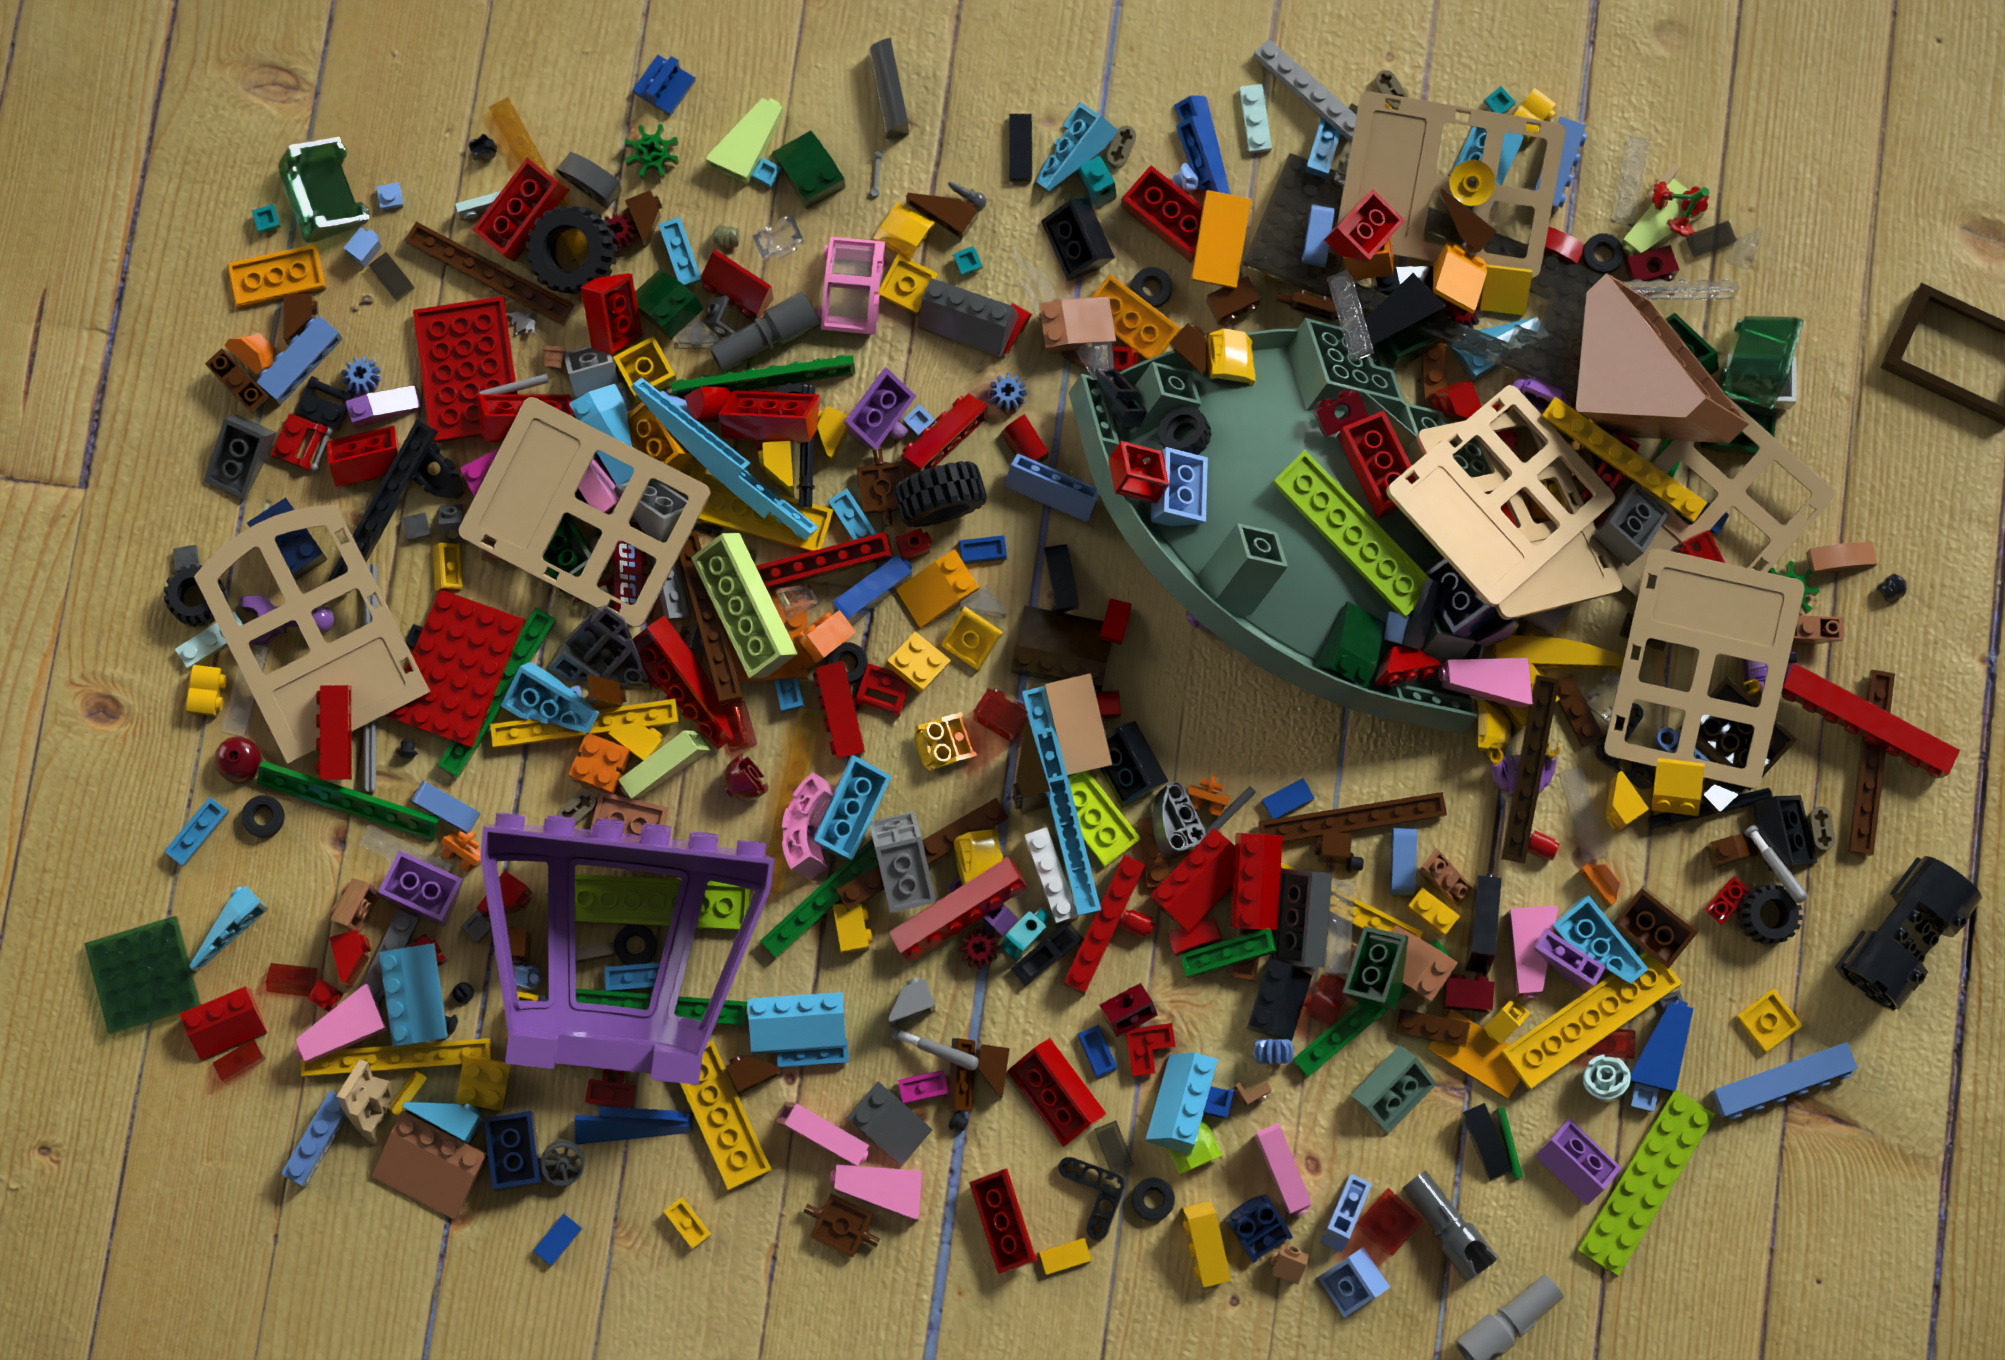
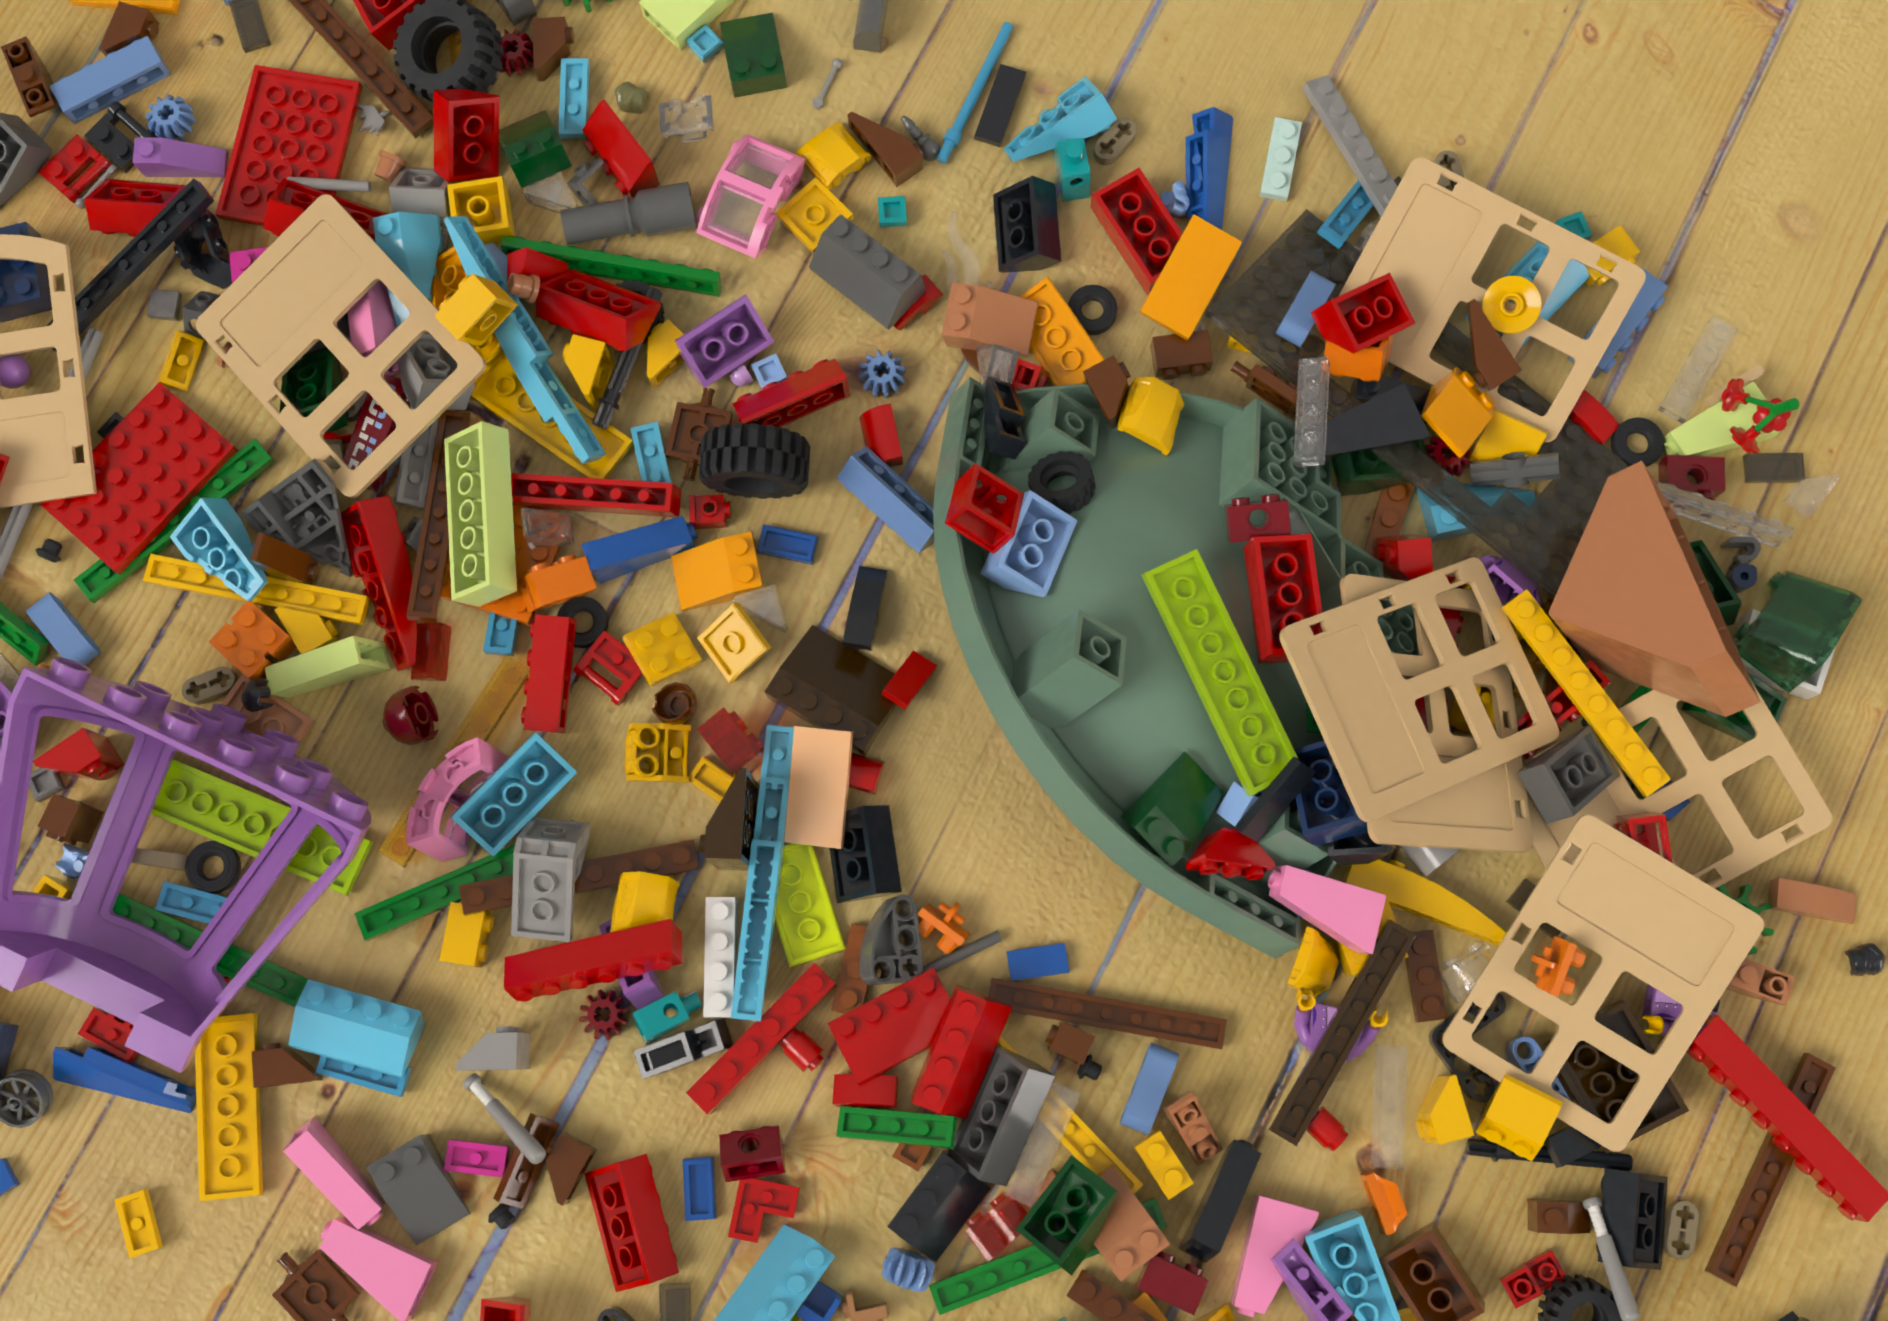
camera: 25 degrees right, 0 degrees up
(252, 351) = (64, 53): orange slope -> none
(620, 803) = (254, 690): none -> black arm
(688, 449) = (475, 309): none -> yellow brick
(710, 417) = (524, 286): none -> nougat piece
(944, 700) = (675, 704): none -> reddish brown hair
(993, 184) = (954, 135): none -> dark azure bar
(998, 750) = (710, 779): none -> yellow tile
(1517, 306) = (1515, 469): none -> dark grey piece
(1665, 664) = (1555, 964): none -> orange hips
(1714, 328) = (1743, 574): none -> leg

